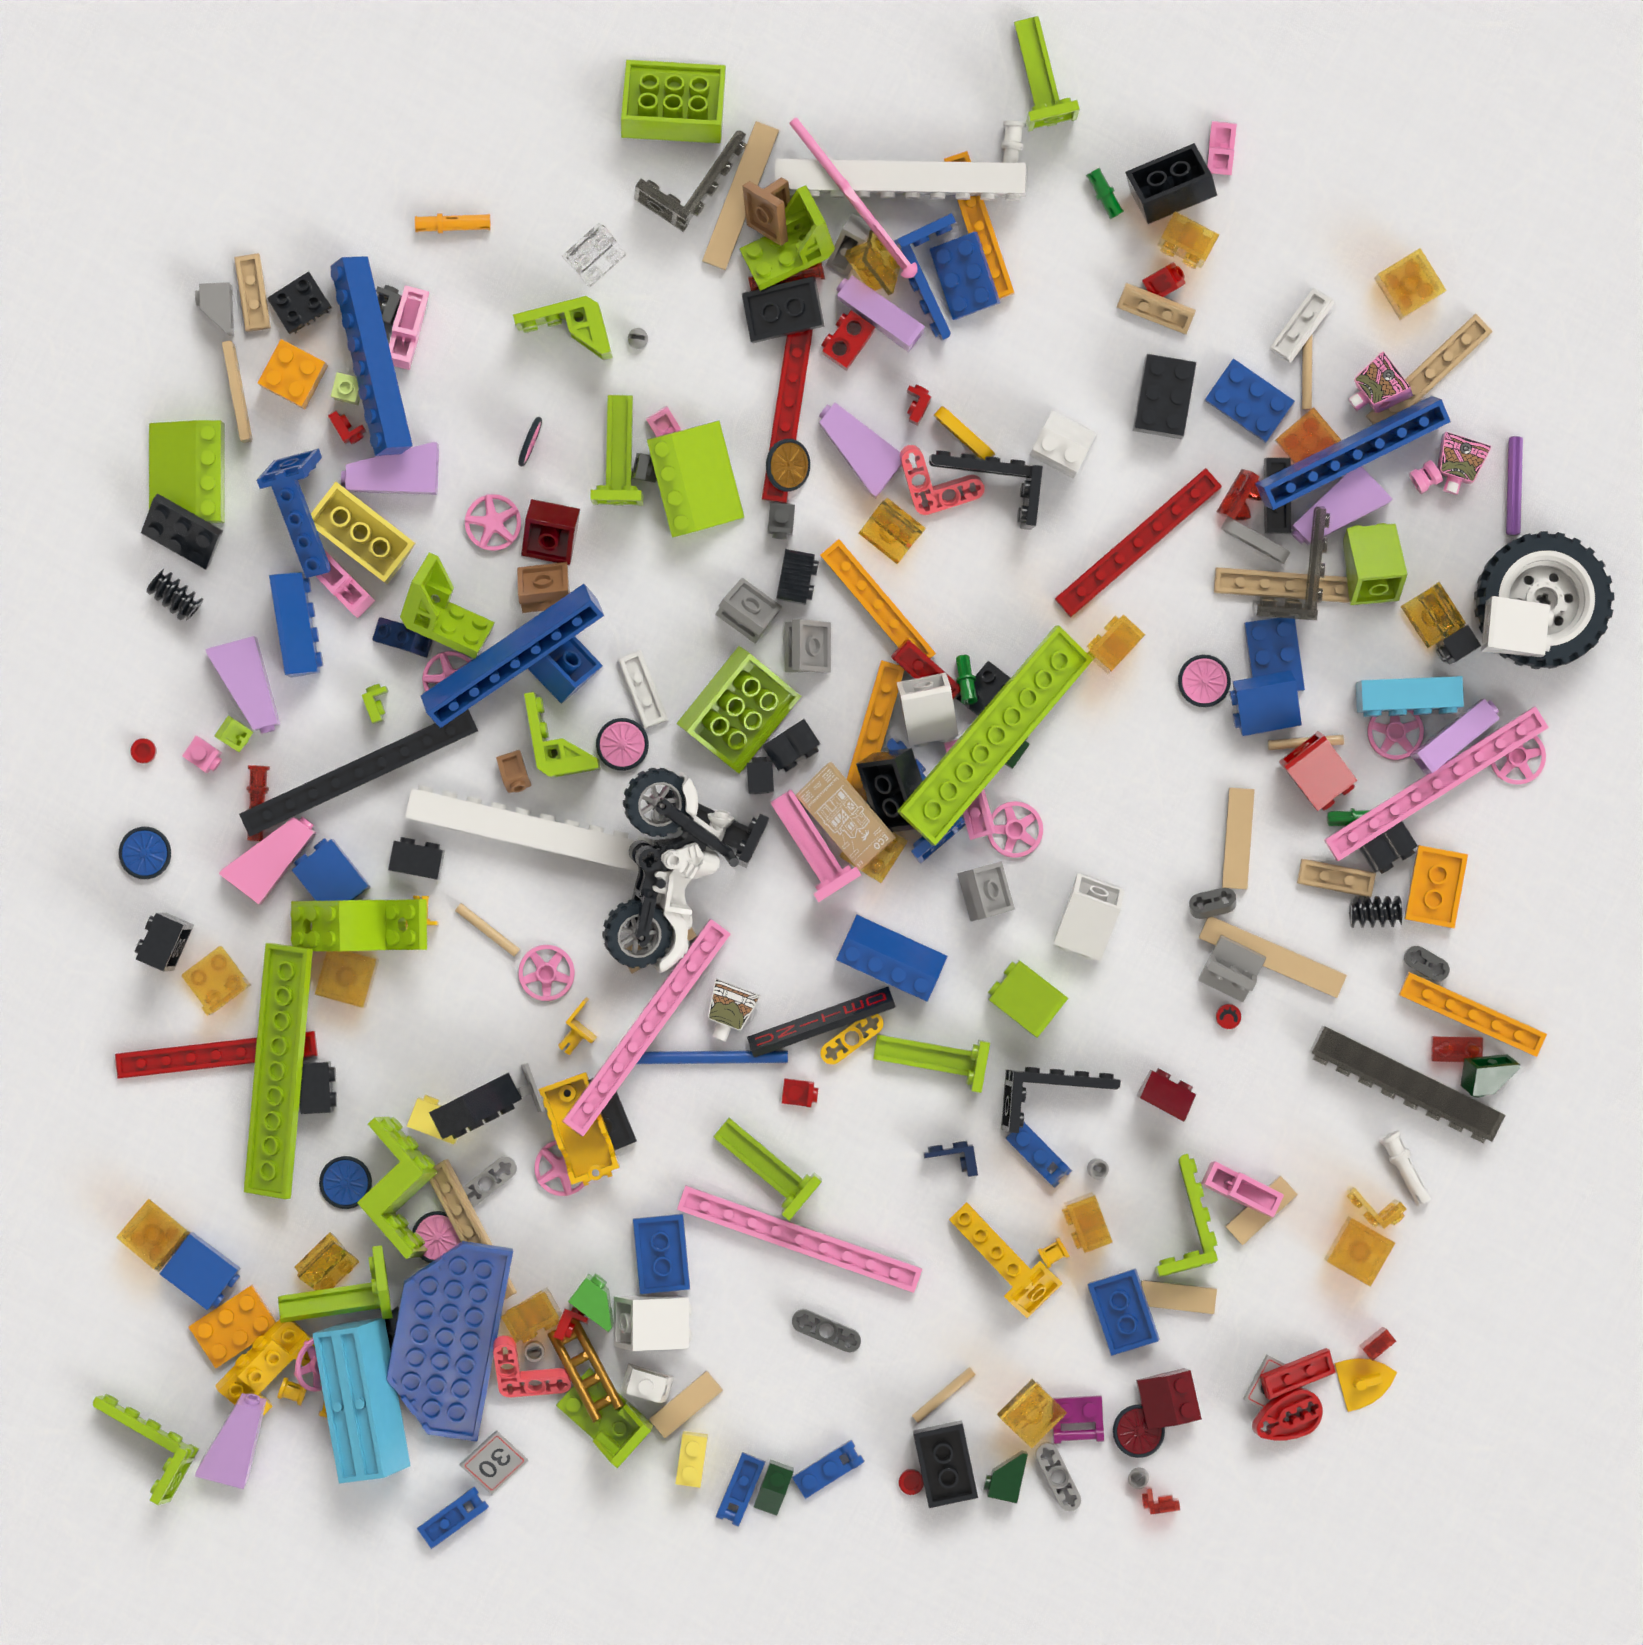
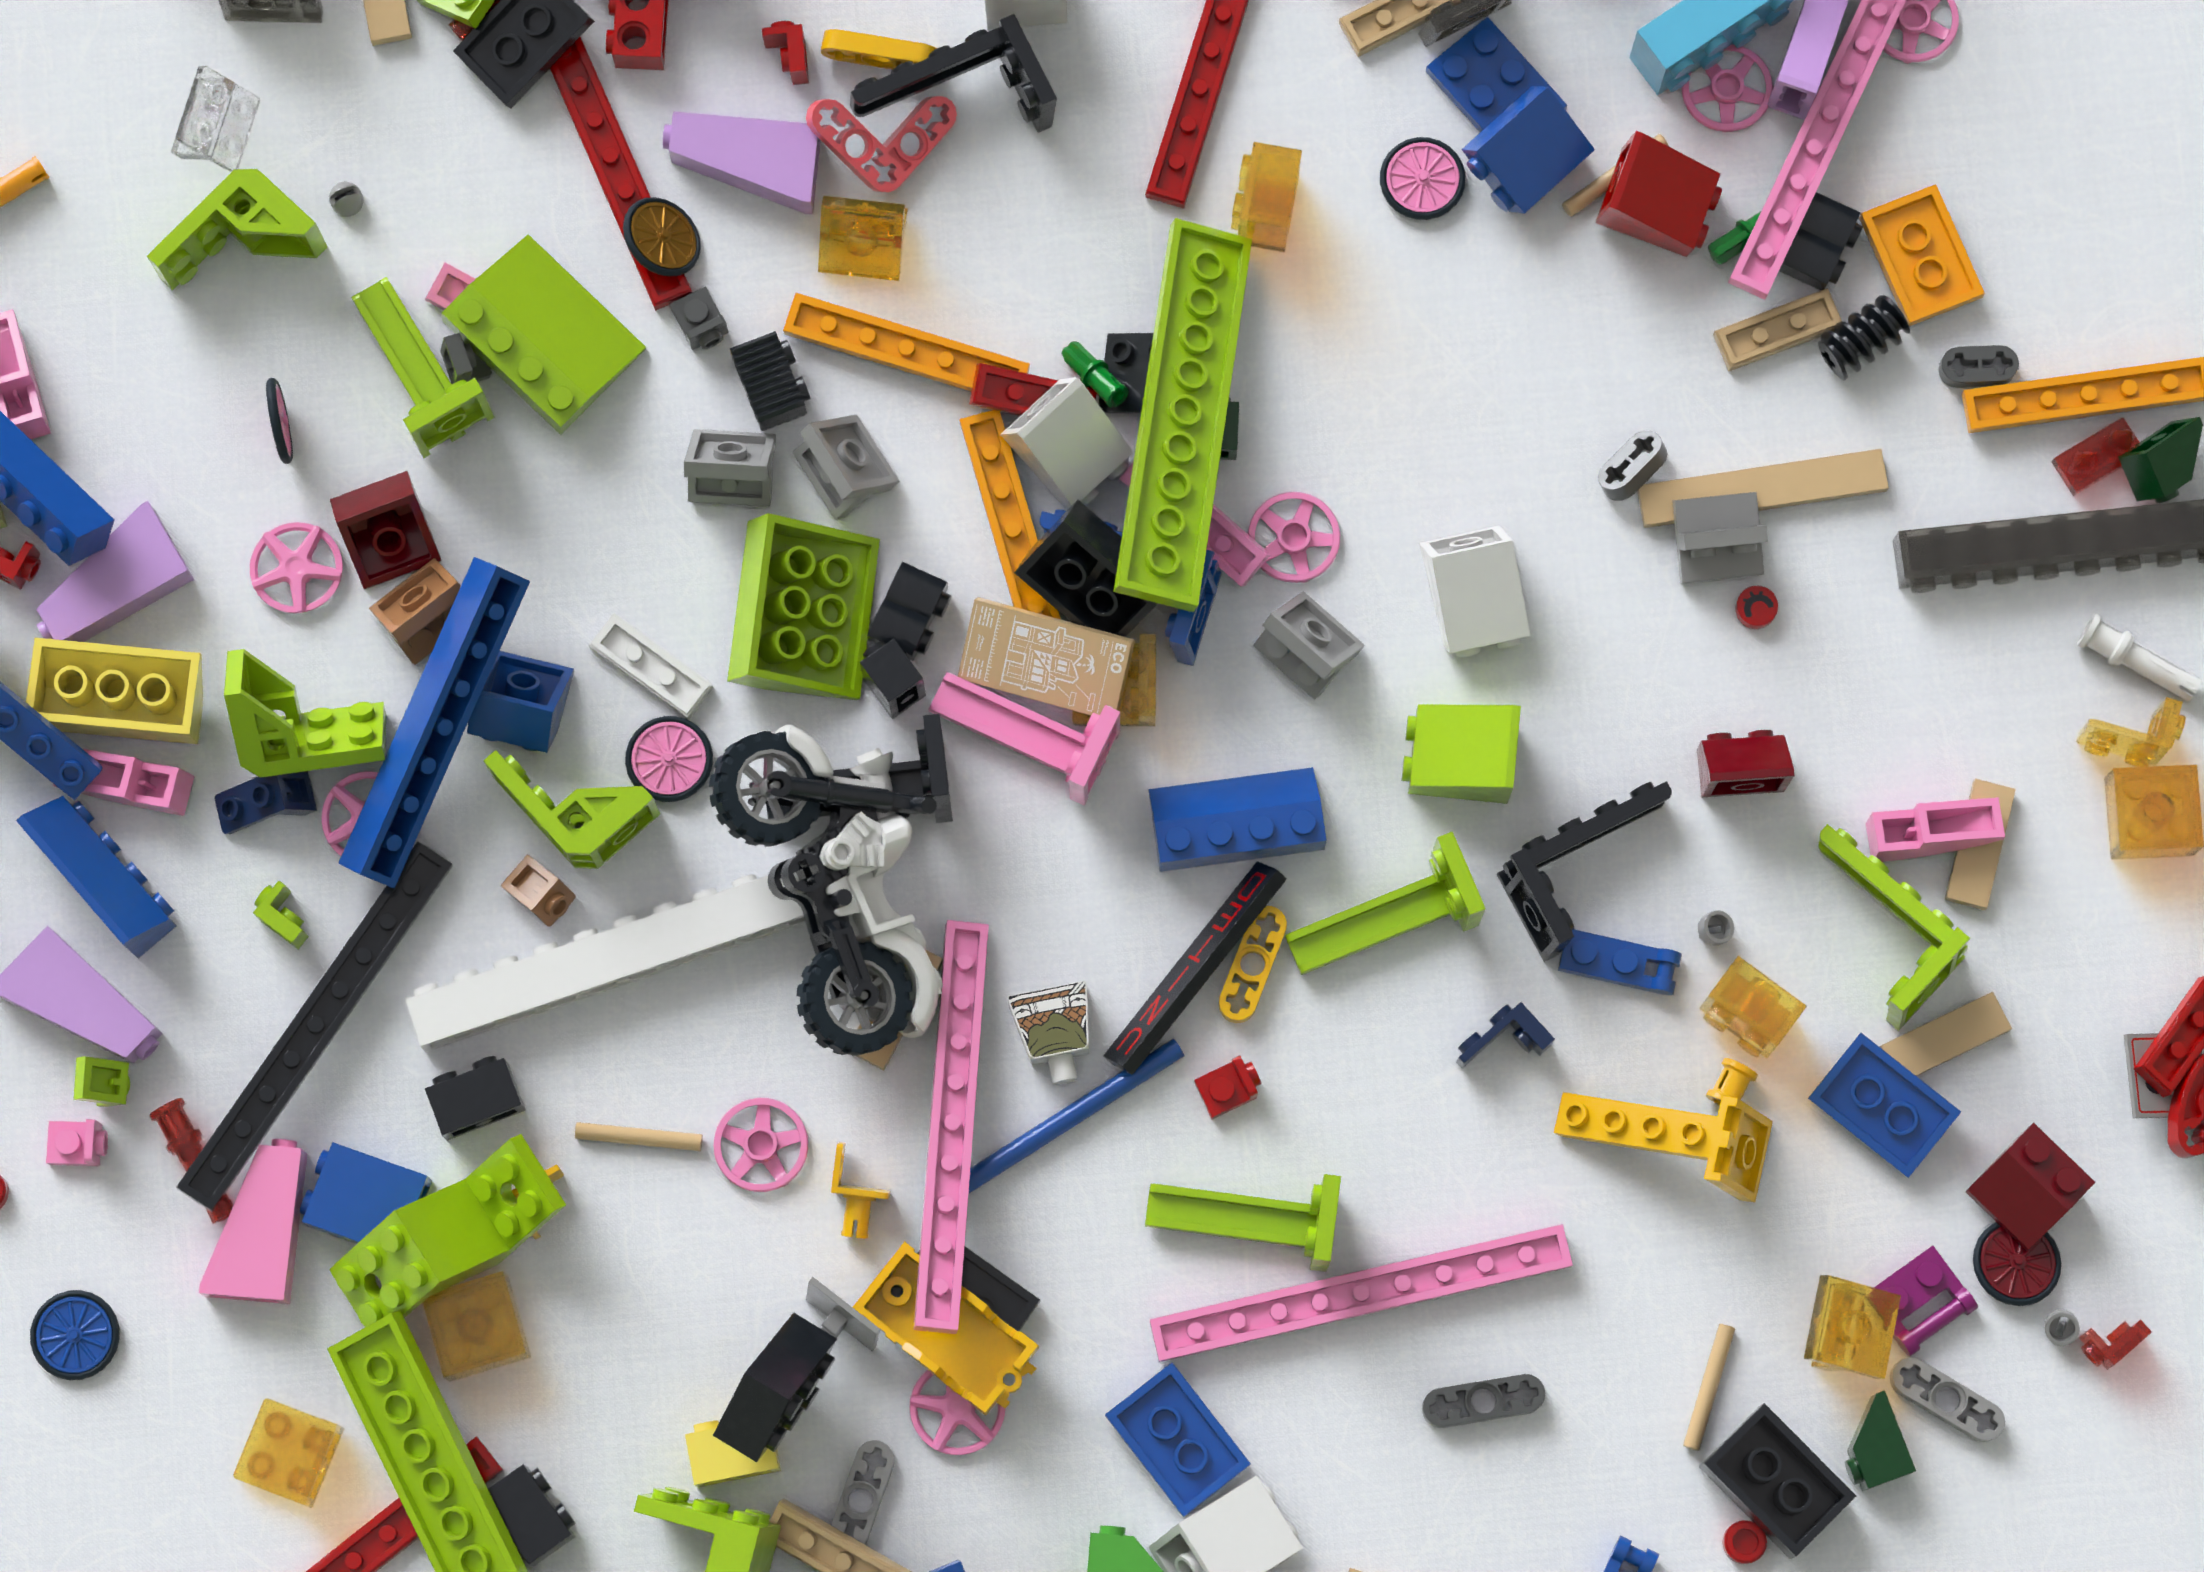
camera: 30 degrees left, 10 degrees down
(163, 941) = (175, 1435): black brick -> none
(1238, 838) = (1608, 358): tan tile -> none

